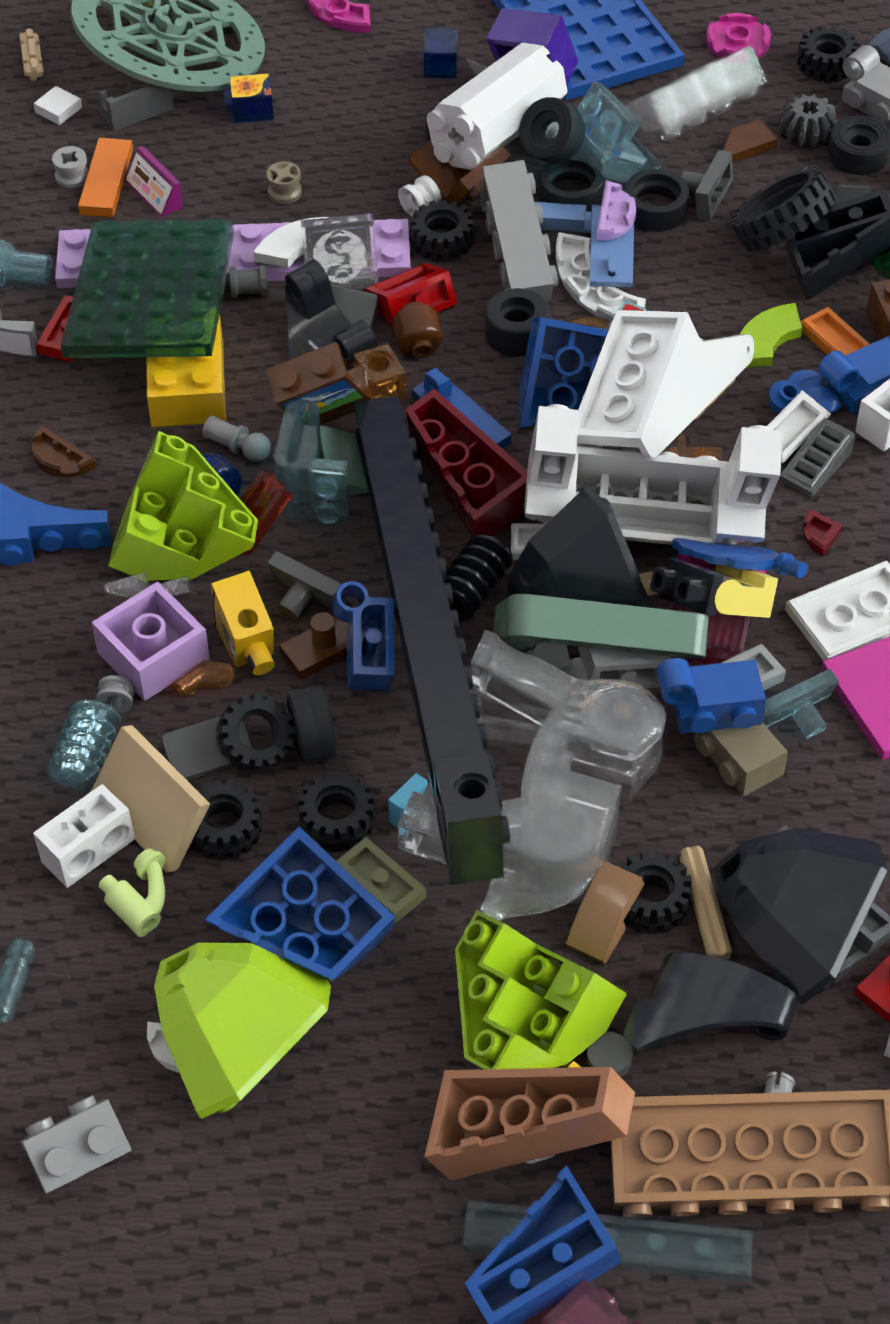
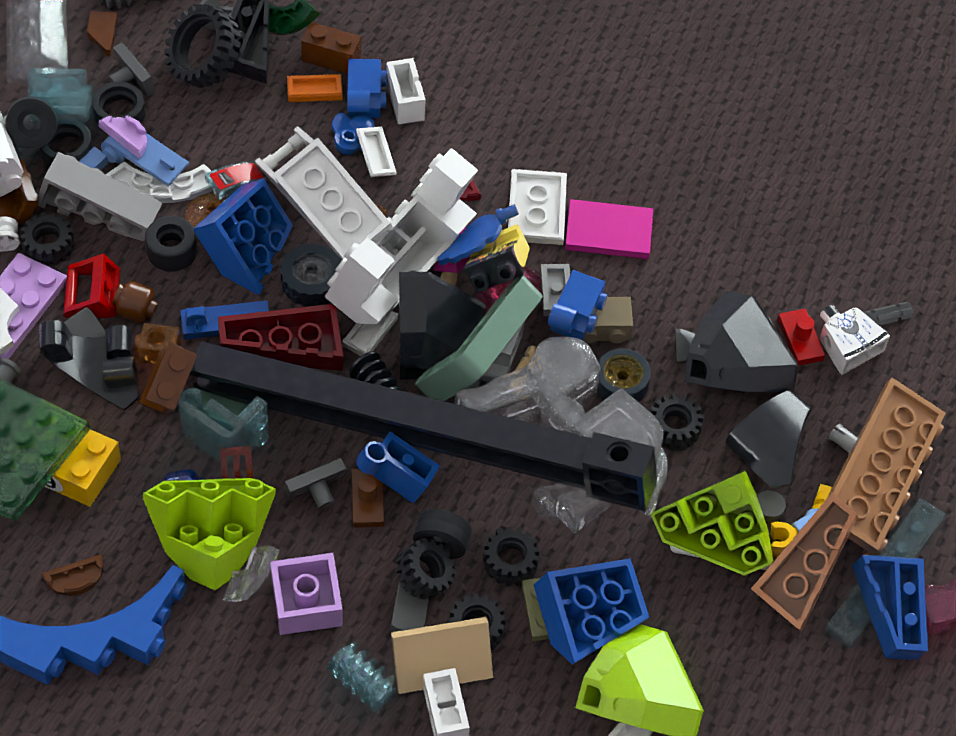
camera: 65 degrees left, 5 degrees up
(116, 692) = (330, 639): light grey bush -> none
(136, 912) = (507, 710): yellowish green plant -> none
(205, 675) = (347, 577): clear orange arm -> none
(243, 622) = (332, 531): yellow torso -> none
(254, 446) = (165, 451): light grey pin -> none
(343, 249) = (30, 305): clear slope -> none
(383, 878) = (577, 554): olive plate -> none
(399, 800) = (531, 512): medium azure tile -> none
(602, 912) = (681, 453): medium nougat slope -> none
(678, 789) = (631, 368): none -> wheel
(706, 904) = (707, 403): tan axle -> none
(771, 330) = (281, 117): lime tile -> none
(800, 703) = (587, 264): clear light blue tile -> none
(829, 438) = (403, 138): dark grey slope -> none

